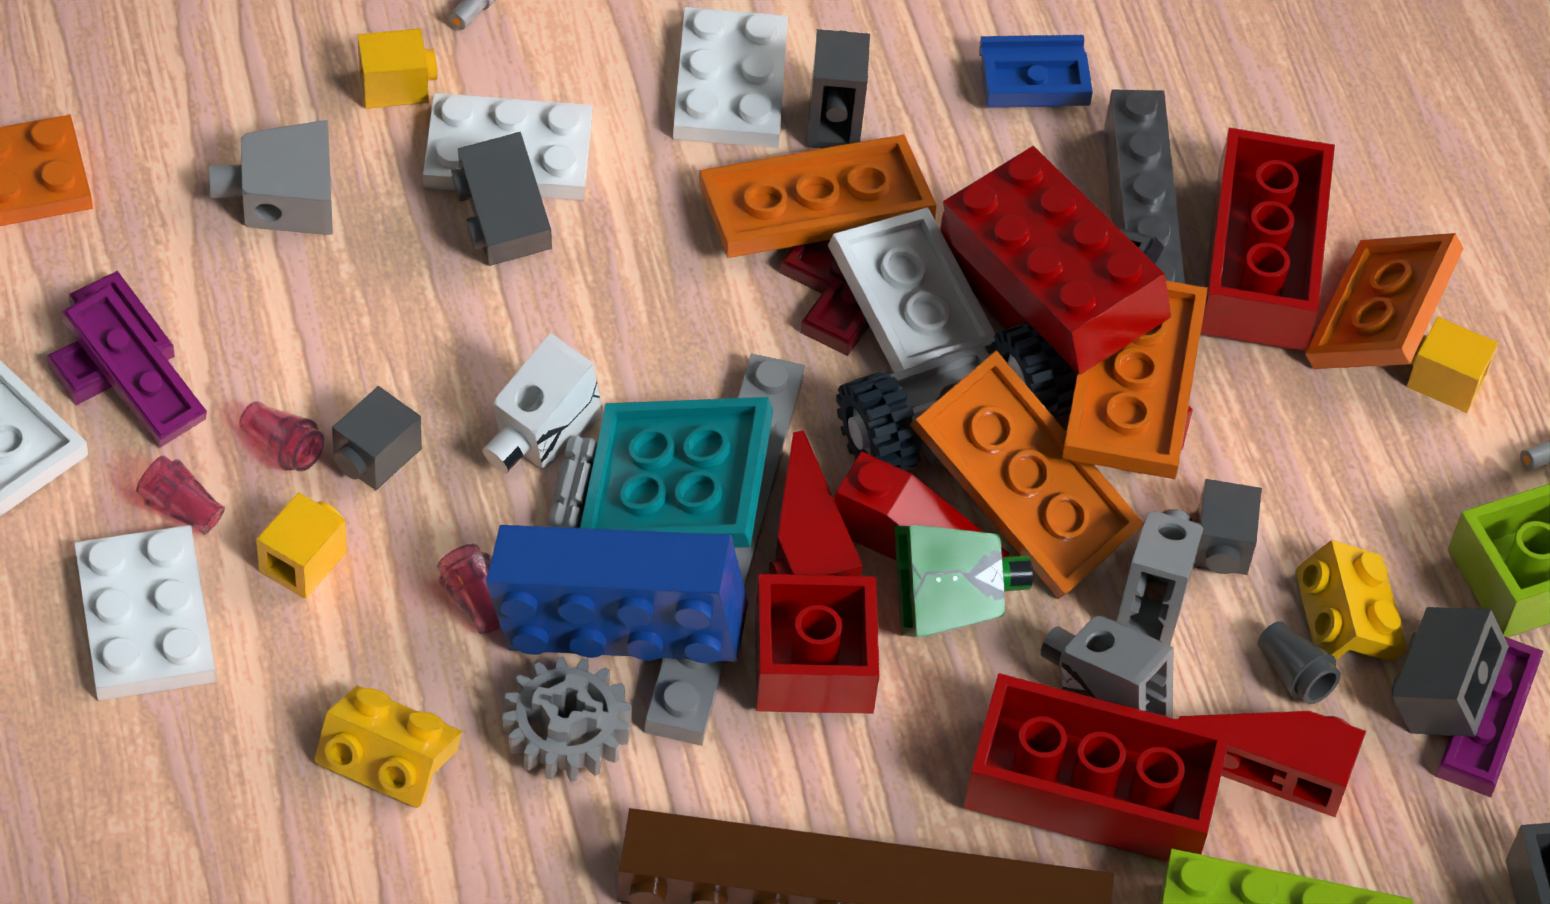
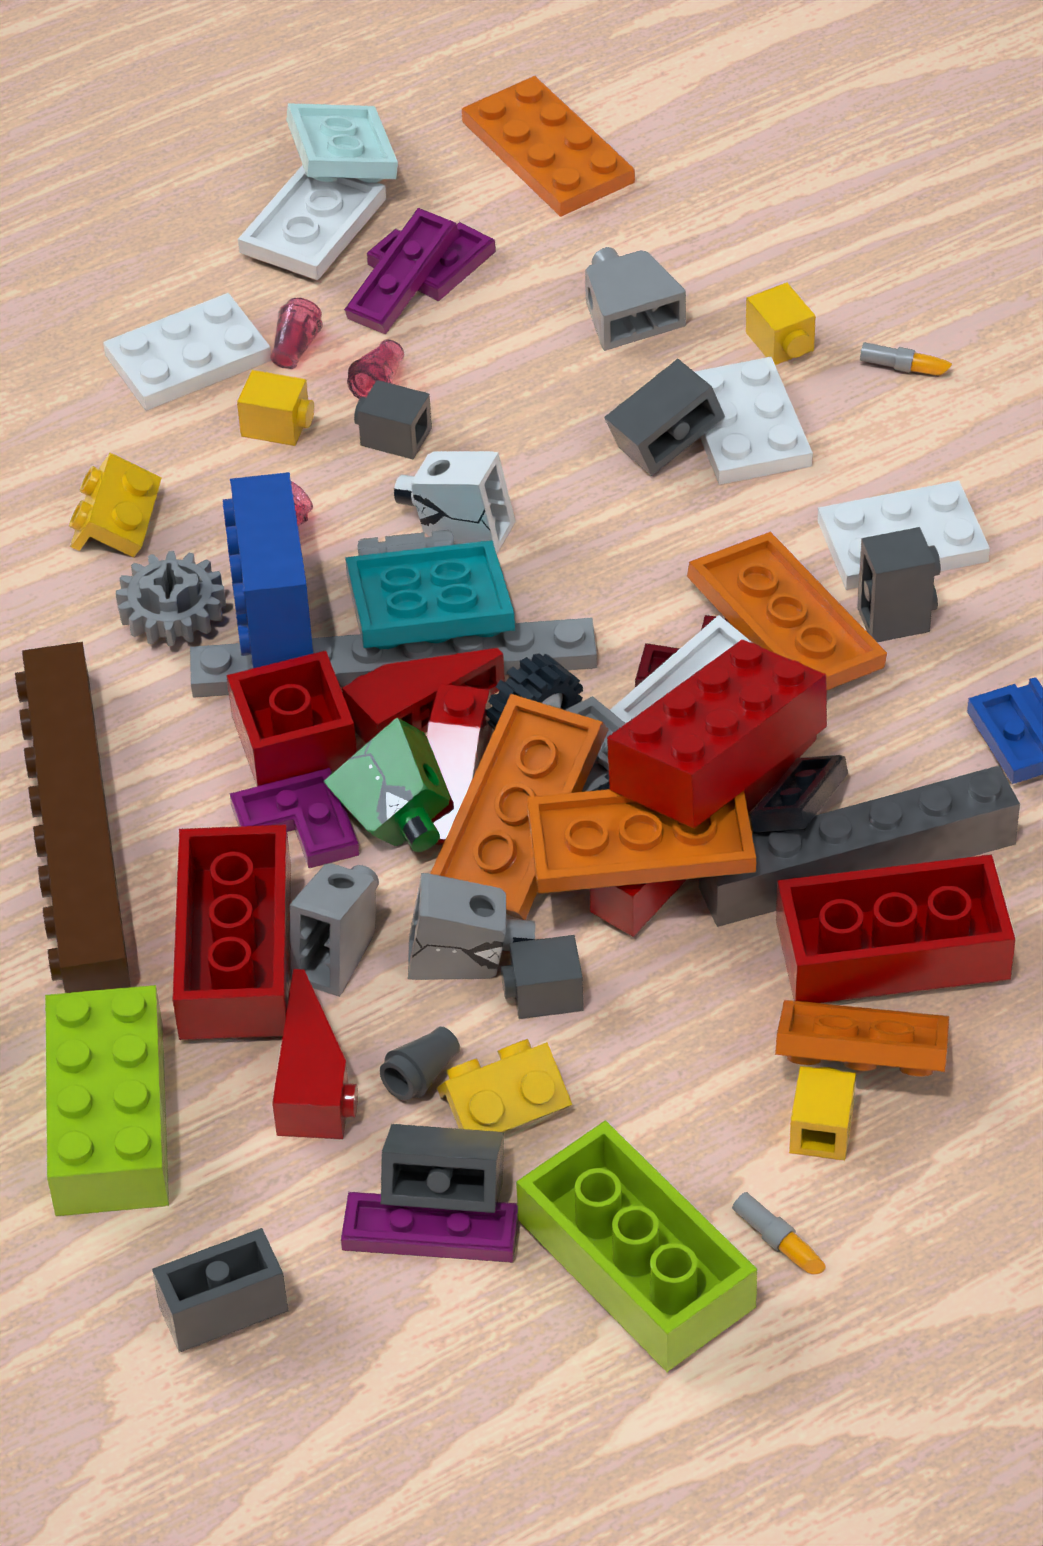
camera: 80 degrees right, 5 degrees down
(916, 674) = (303, 806): none -> magenta tile

